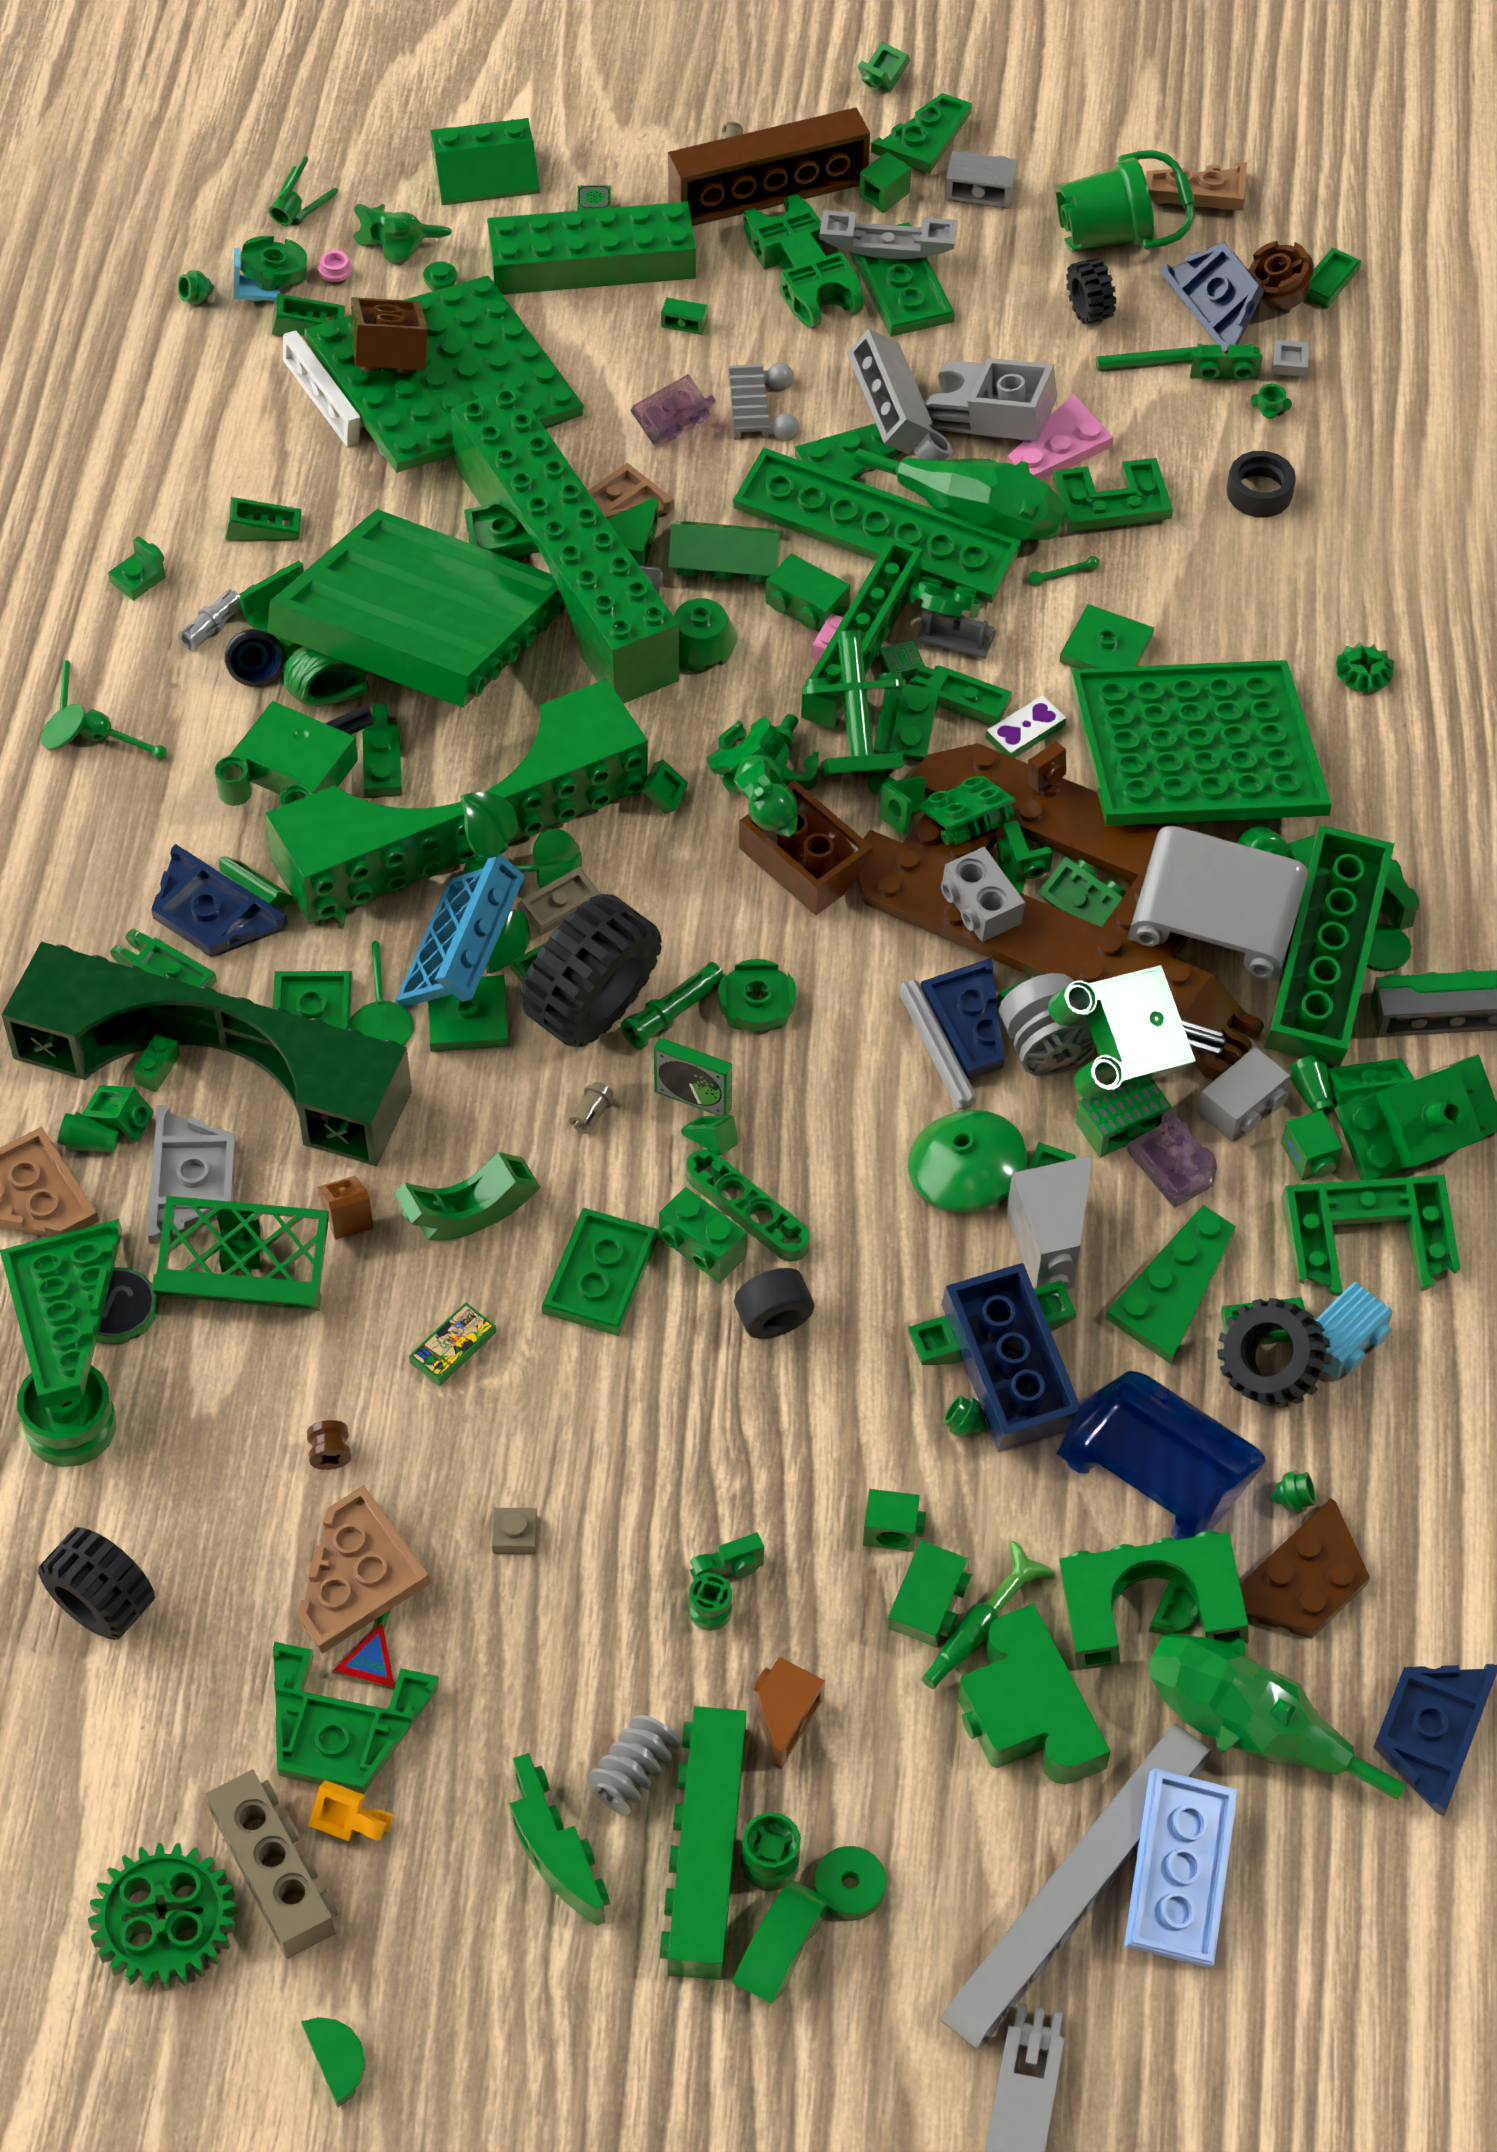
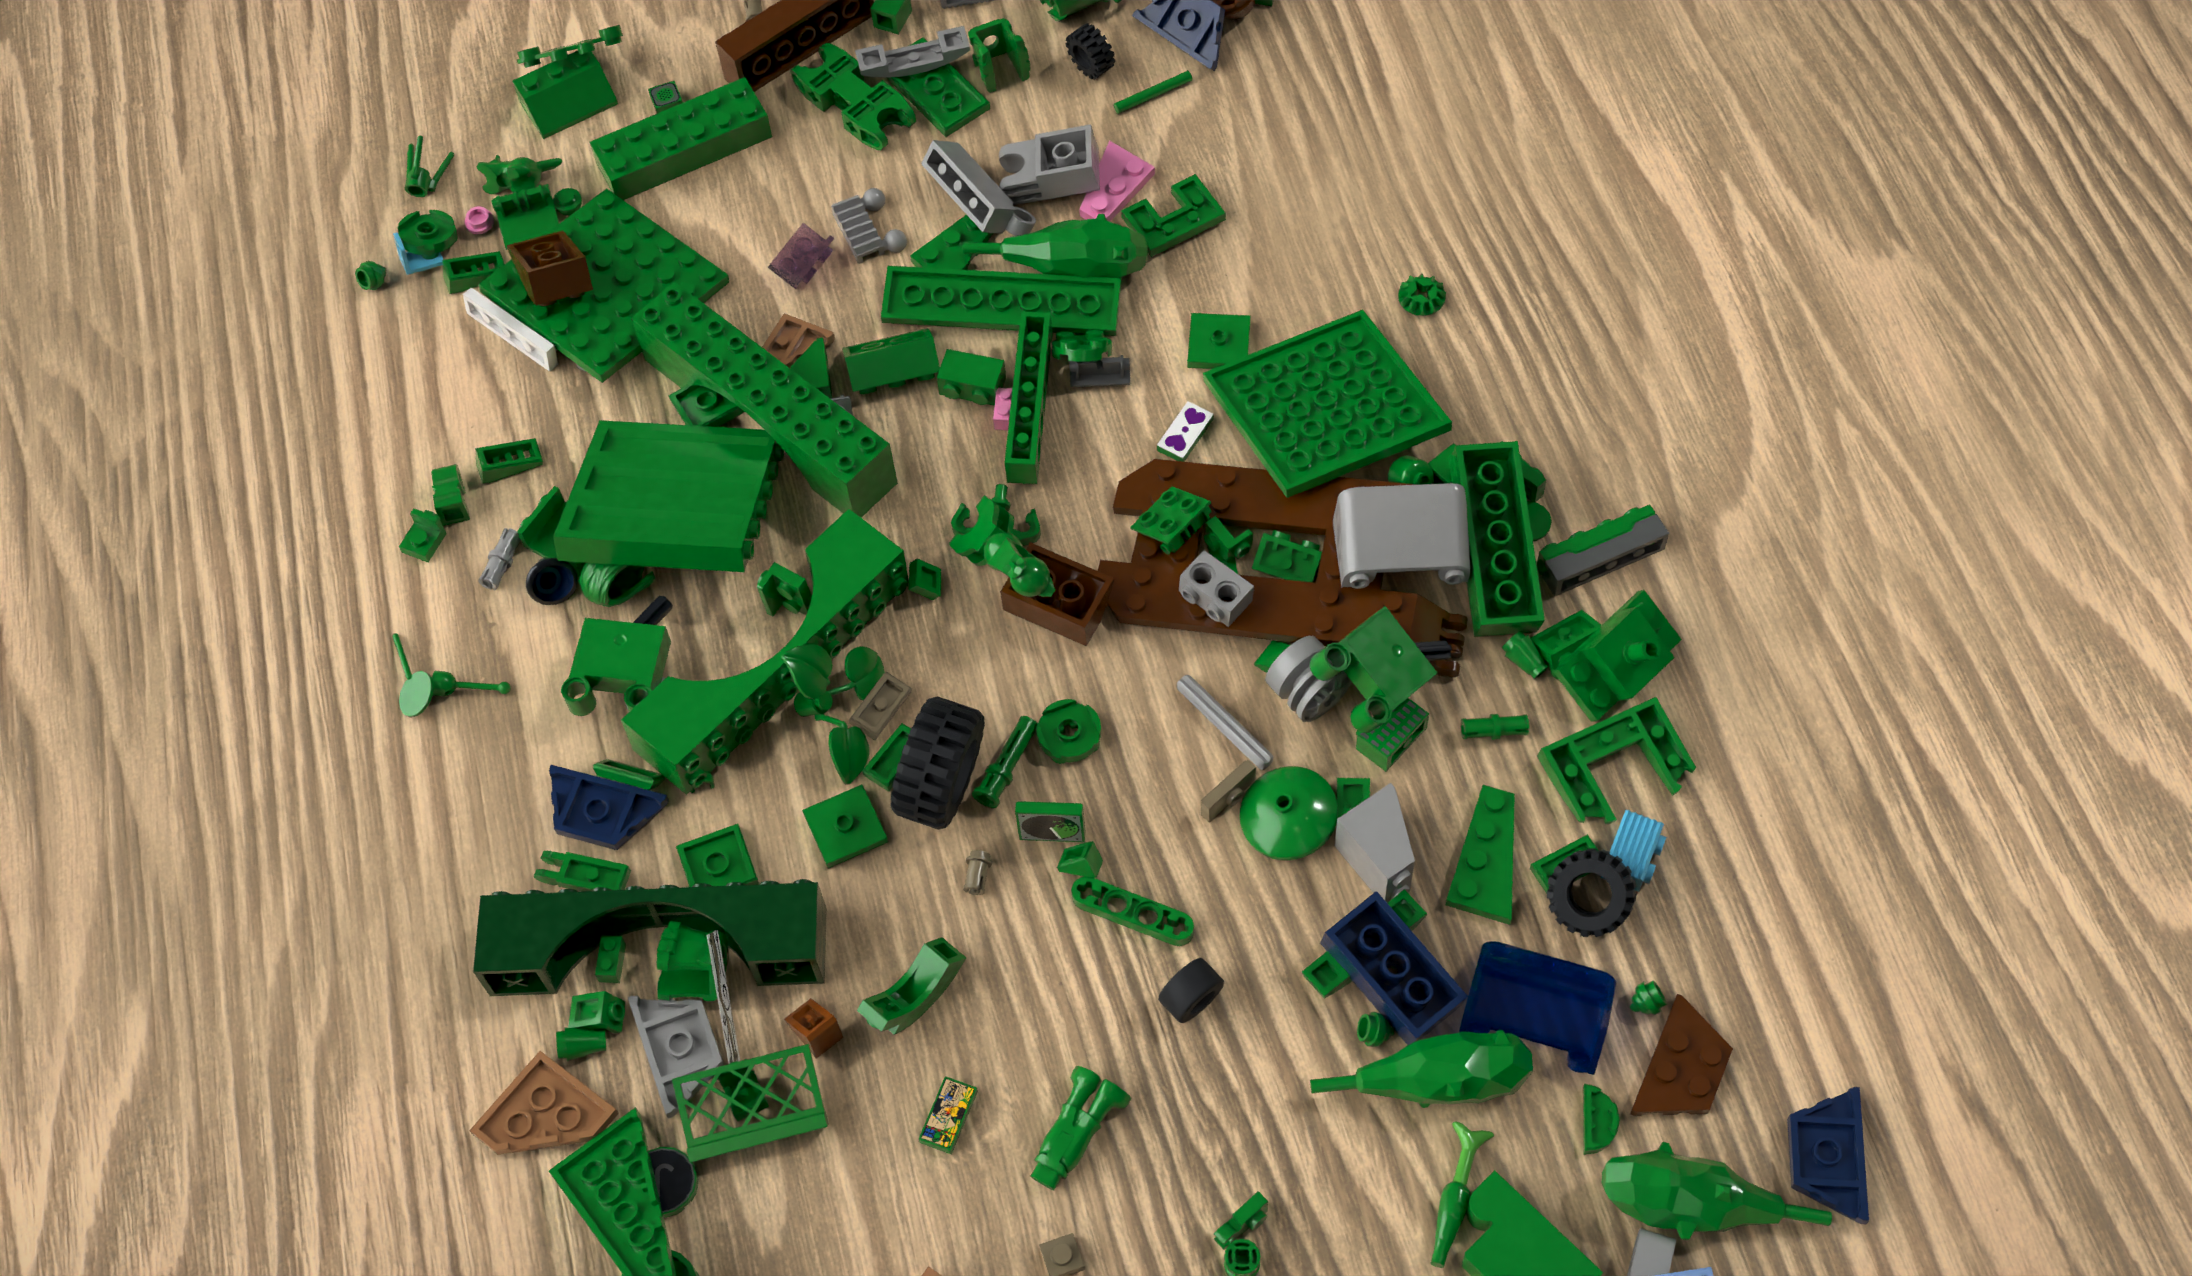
camera: 15 degrees left, 5 degrees up
(181, 537) = (448, 495): none -> green leg
(242, 1091) = (687, 963): none -> green piece
(257, 1130) = (723, 997): none -> sticker
(328, 1444) = (885, 1240): reddish brown wheel -> none
(382, 755) = (687, 629): green hinge -> none
(382, 1018) = (778, 858): green piece -> none
(388, 272) = (525, 214): none -> green hinge
(462, 111) = (532, 56): none -> green plant
(462, 934) = (829, 764): dark azure fence -> none
(498, 743) = (783, 587): none -> green bracket
(585, 1401) = (1074, 1128): none -> green piece
(600, 1271) = (1039, 1009): green tile -> none
(684, 316) = (777, 172): green piece -> none
(702, 1234) = (1110, 951): green brick -> none
(704, 634) = (907, 437): green cone -> none
(856, 709) = (1070, 502): green piece -> none
(893, 1520) = (1355, 1138): green brick -> none
(897, 798) = (1112, 527): green bracket -> none
(901, 658) = (1066, 408): green tile -> none
(906, 722) = (1092, 459): green plate -> none
(908, 1115) = (1228, 791): none -> dark tan plate
(929, 1594) = (1410, 1191): green brick -> none
(965, 693) = (1124, 420): green hinge -> none
(969, 1016) = (1239, 689): dark blue wing -> none
(1000, 256) = (1005, 43): none -> green piece
(1022, 1481) = (1443, 1070): none -> green piece
(1036, 578) = (1141, 303): green hinge -> none
(1047, 767) = (1222, 464): reddish brown plate -> none
(1174, 1160) = (1447, 755): bracket -> none
(1198, 1564) = (1607, 1089): green arch -> none
(1240, 362) = (1227, 74): green hinge -> none
(1244, 1094) = (1477, 681): light grey brick -> none
(1245, 1148) = (1494, 726): none -> green pin
(1261, 464) = (1283, 152): black tyre -> none
(1271, 400) = (1262, 97): green plate -> none
(1290, 358) = (1263, 57): light grey plate -> none
(1312, 1145) = (1545, 706): green brick -> none

